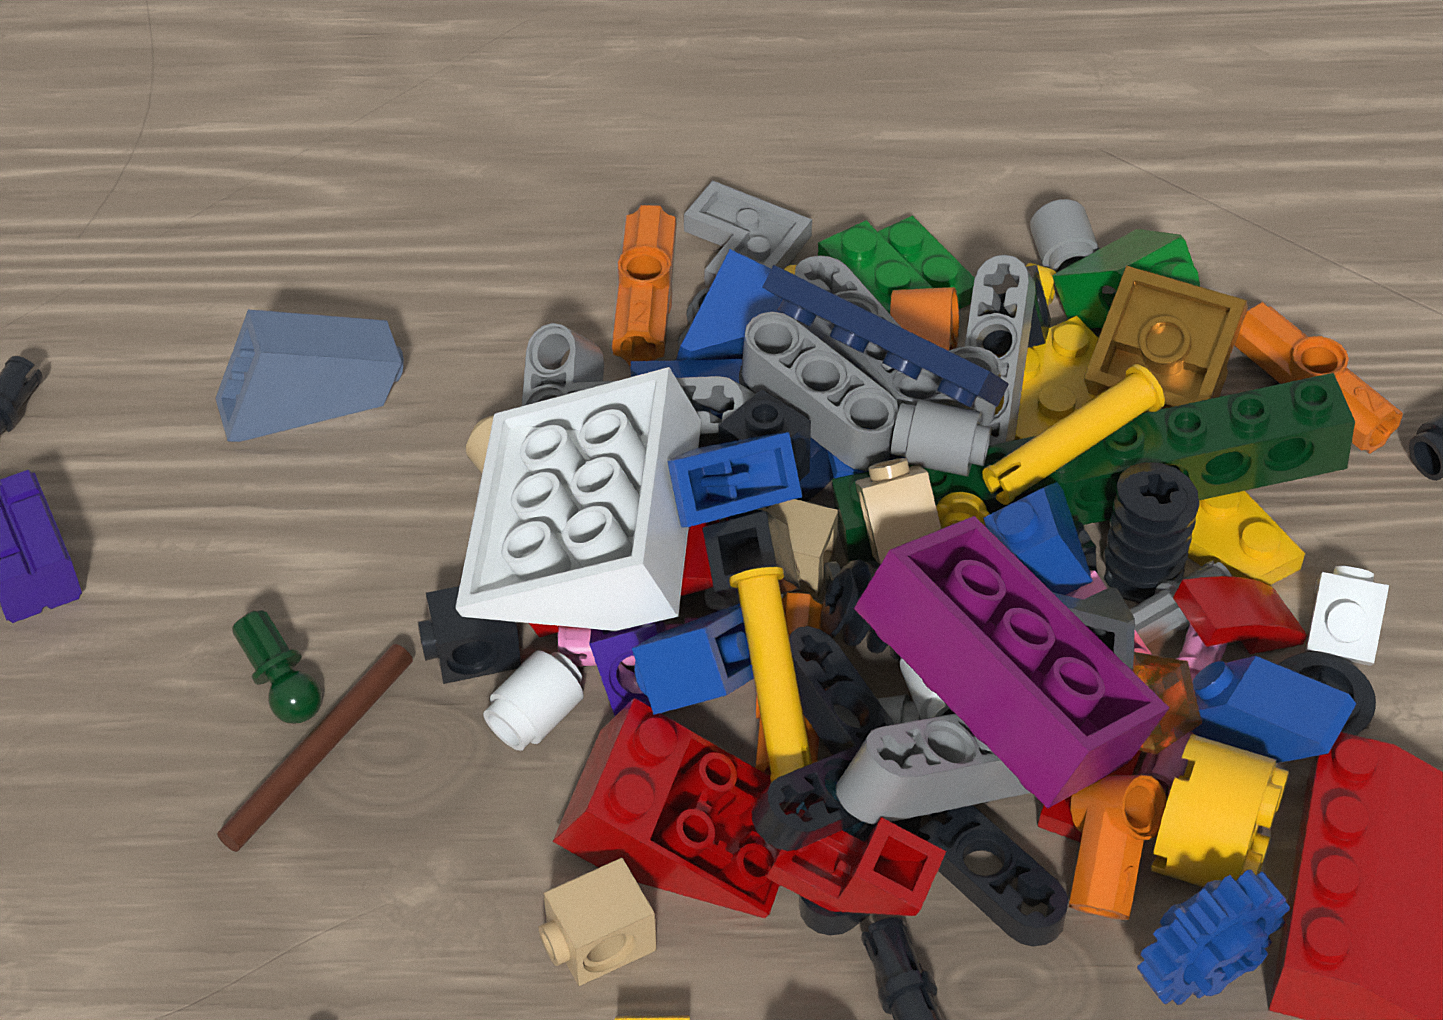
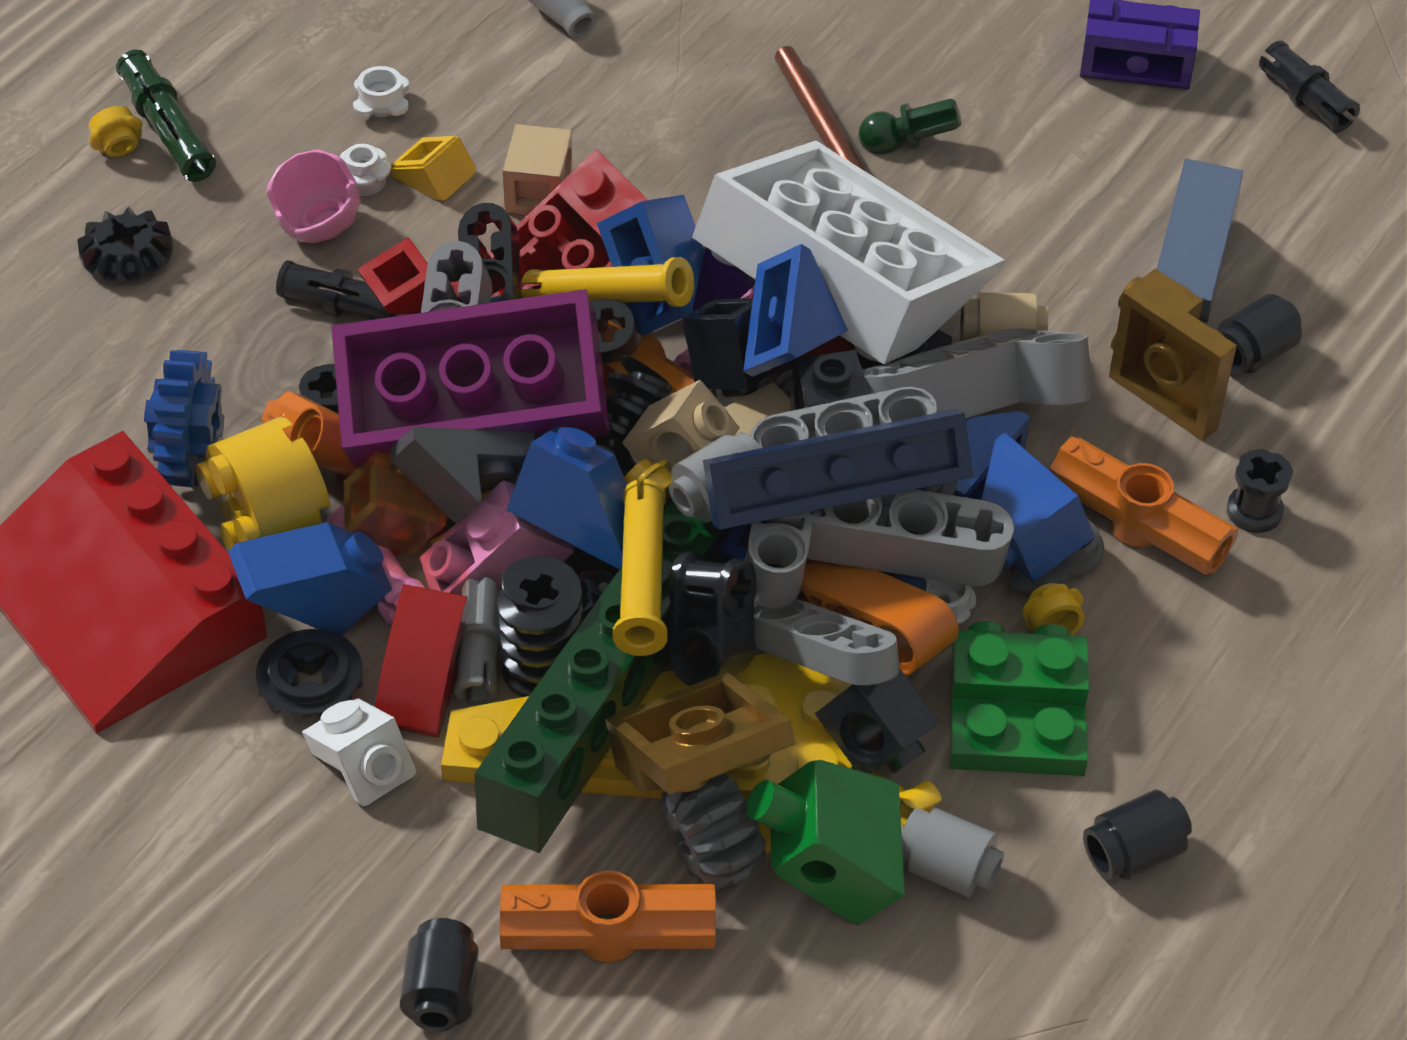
camera: 125 degrees right, 0 degrees up
(385, 297) = (1262, 332): none -> black brick
(474, 313) = (1170, 354): none -> pearl gold plate
(566, 237) = (1261, 482): none -> black bush
(747, 227) = (1149, 630): light grey plate -> none
(951, 162) = (1137, 835): none -> black brick
(1041, 397) = (713, 614): none -> black piece

